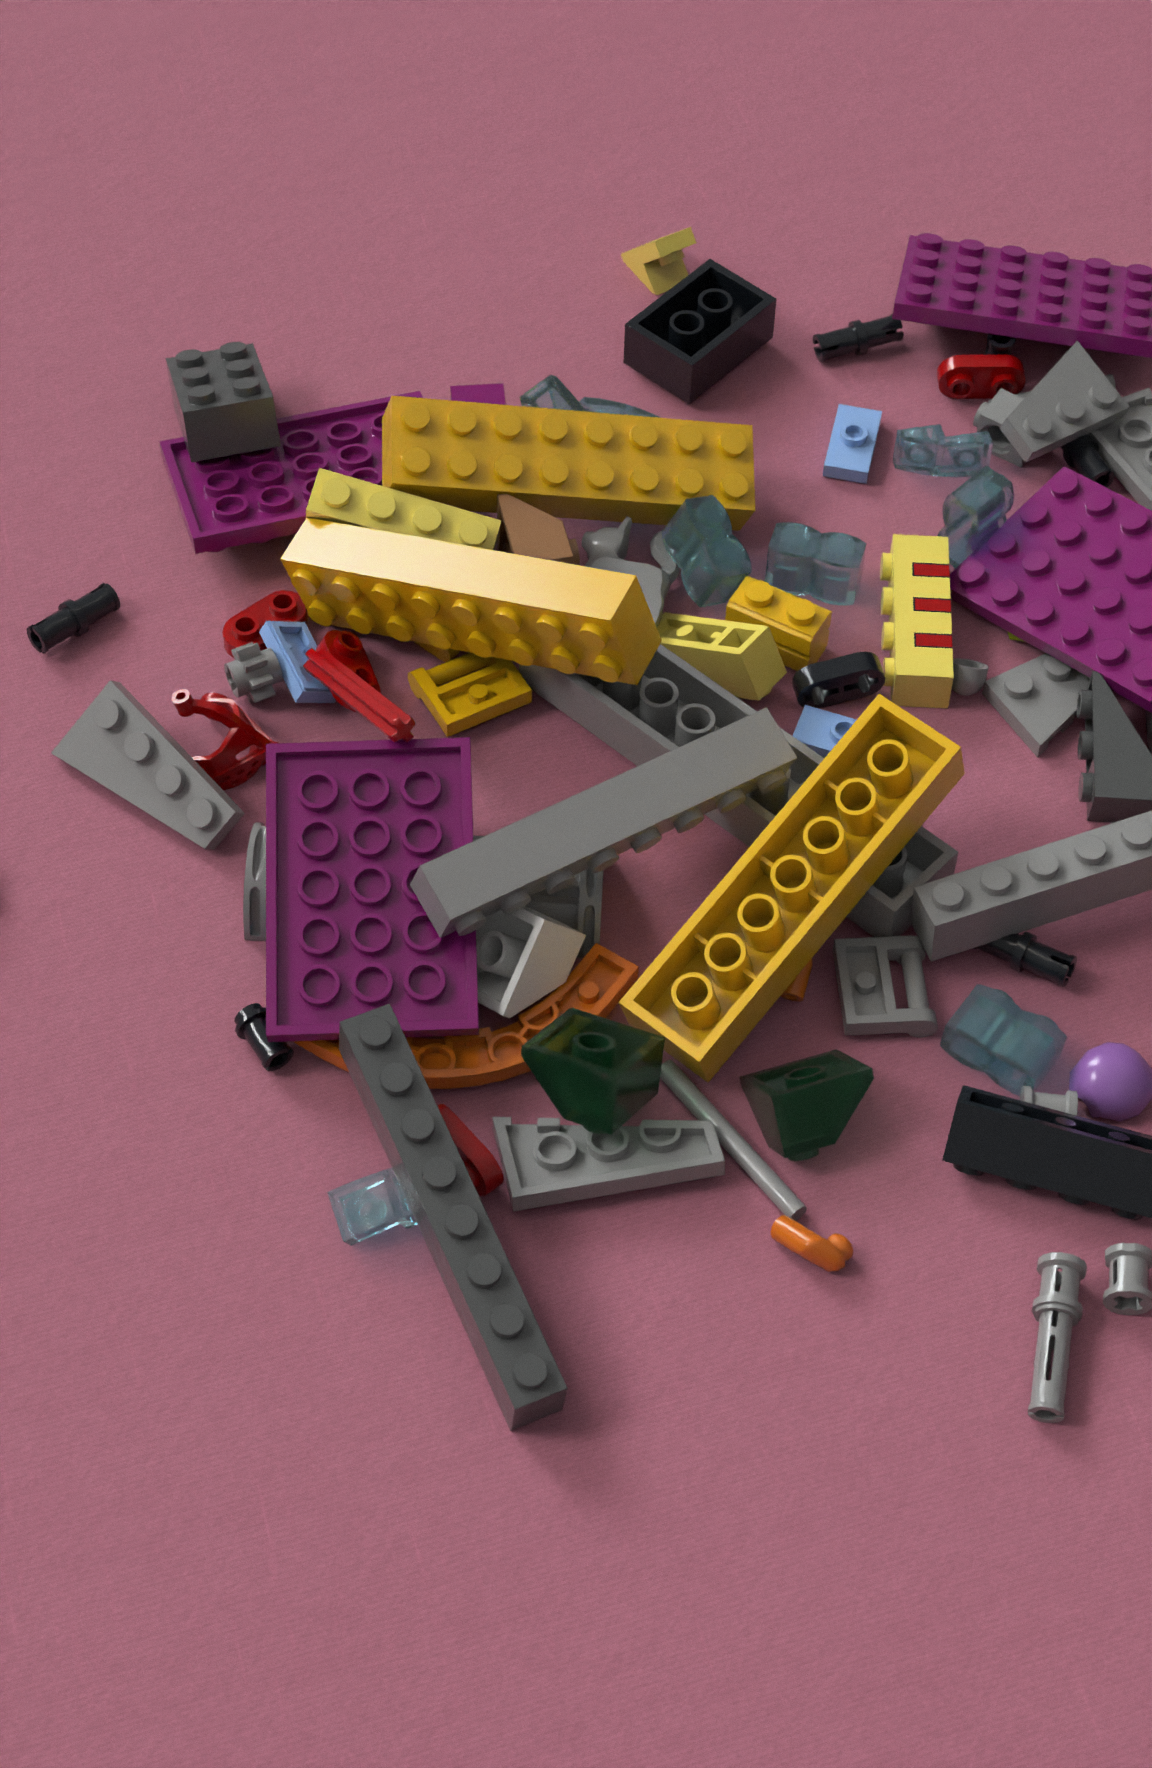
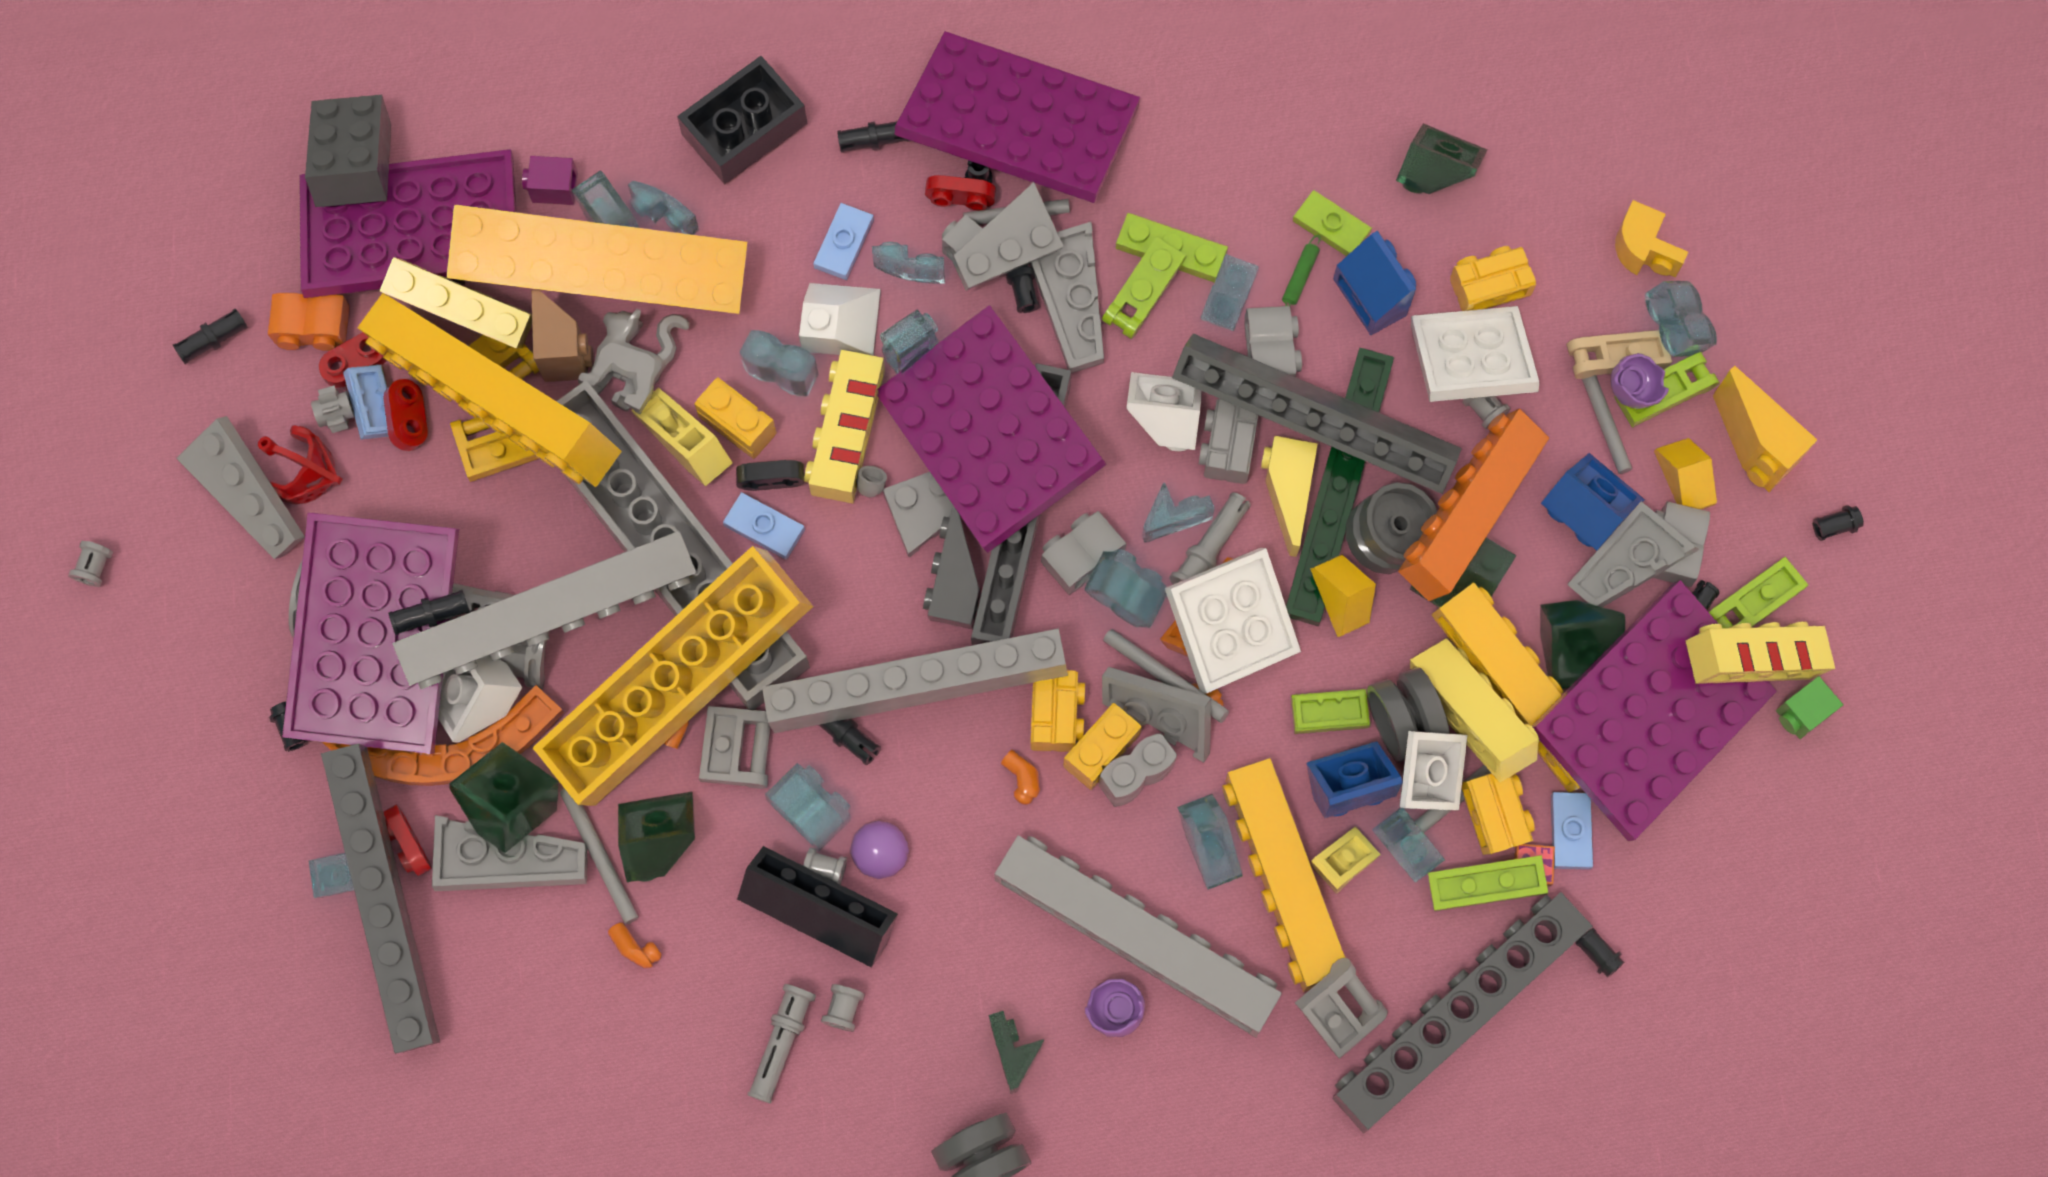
camera: 10 degrees right, 20 degrees up
(199, 585) = (308, 321): none -> orange brick
(359, 695) = (391, 465): red axle -> none
(450, 836) = (428, 612): none -> black pin
(660, 261) = (733, 34): light yellow slope -> none
(706, 551) = (690, 339): clear light blue brick -> none
(872, 514) = (839, 319): none -> white slope

